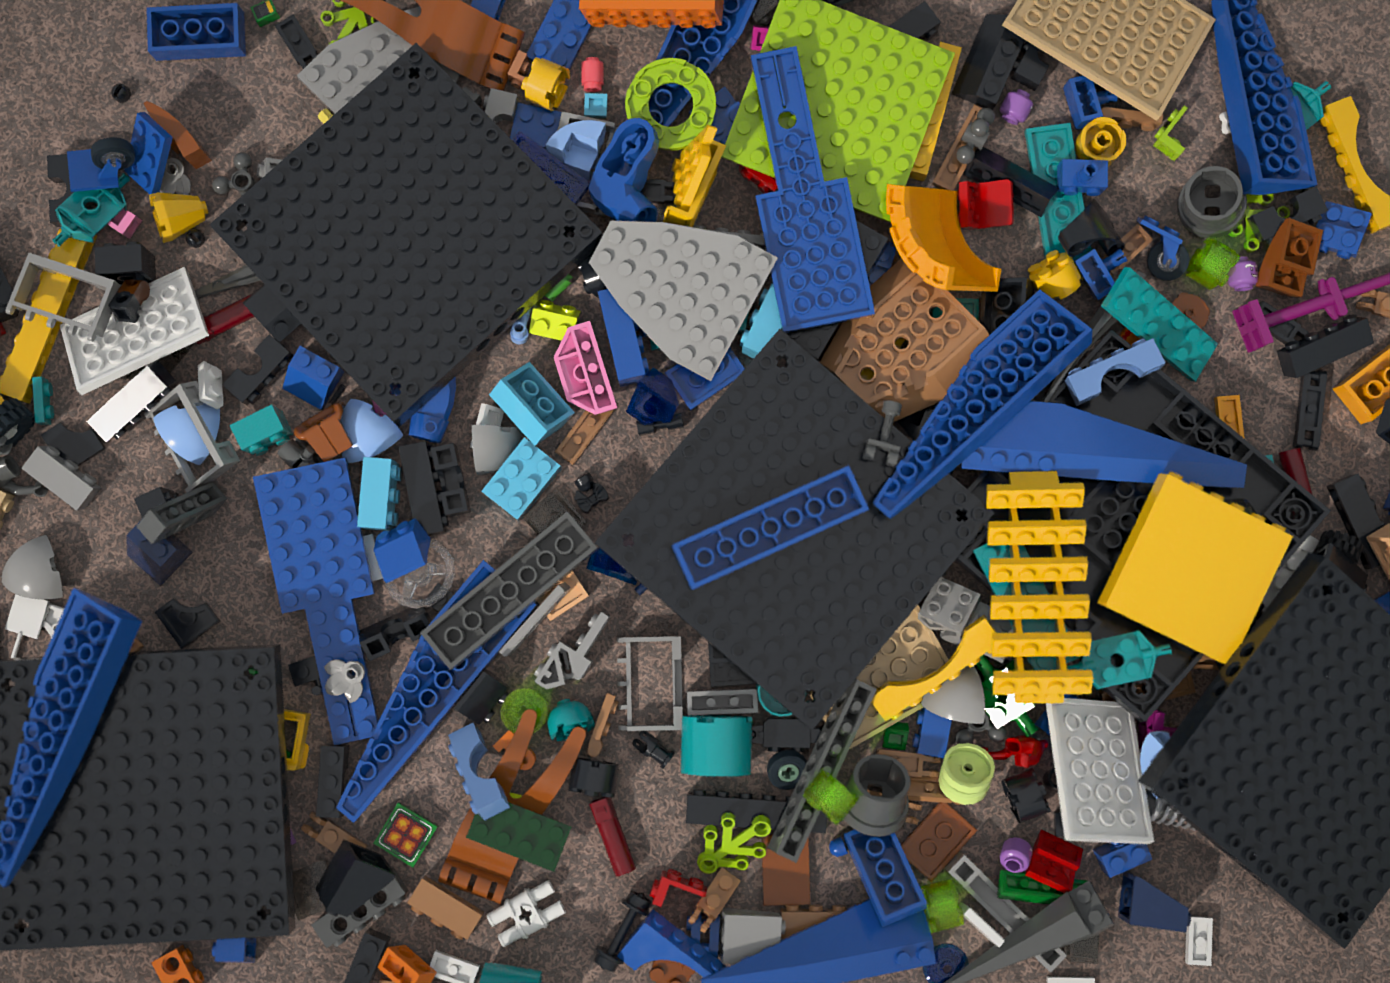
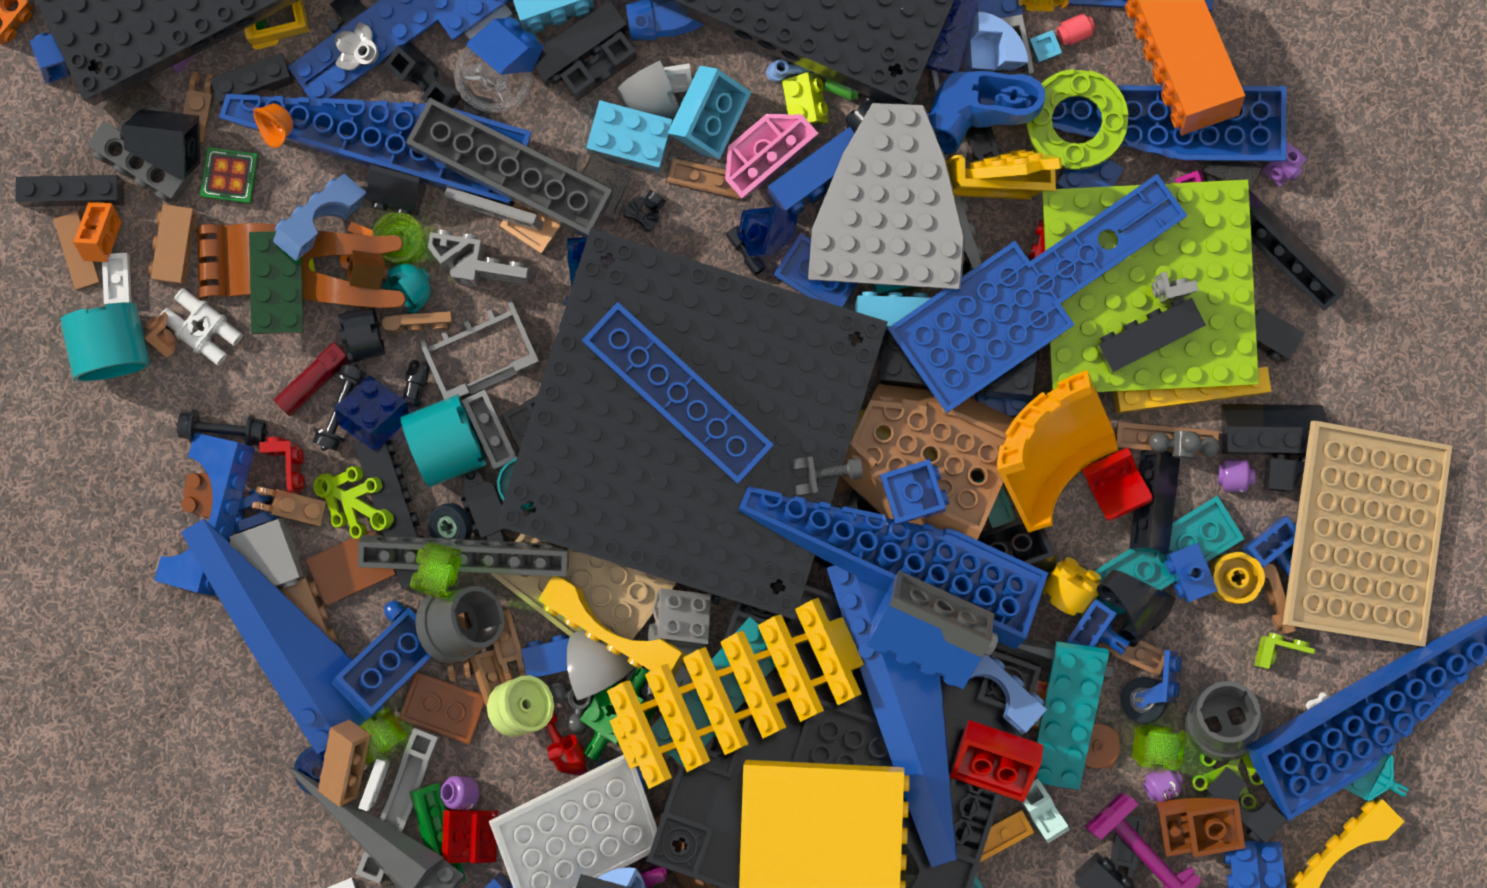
camera: 70 degrees right, 0 degrees up
(382, 777) = (273, 124): none -> orange helmet
(521, 952) = (159, 337): none -> nougat bracket
(542, 749) = (366, 269): none -> reddish brown brick
(665, 796) = (371, 412): none -> clear blue brick
(670, 843) = (327, 438): none -> black piece
(850, 89) = (1168, 291): none -> light grey bracket
(880, 120) = (1150, 335): none -> black brick
(896, 736) = (530, 623): green slope -> none
(931, 367) = (914, 492): none -> blue plate
(954, 943) = (344, 762): none -> medium nougat brick
(1025, 795) = (524, 777): black brick -> none
(1056, 401) = (932, 630): none -> piece
(1137, 656) = (715, 819): teal plate -> none
(1177, 396) = (997, 761): none -> red slope
(1226, 380) = (1044, 813): none -> light aqua brick

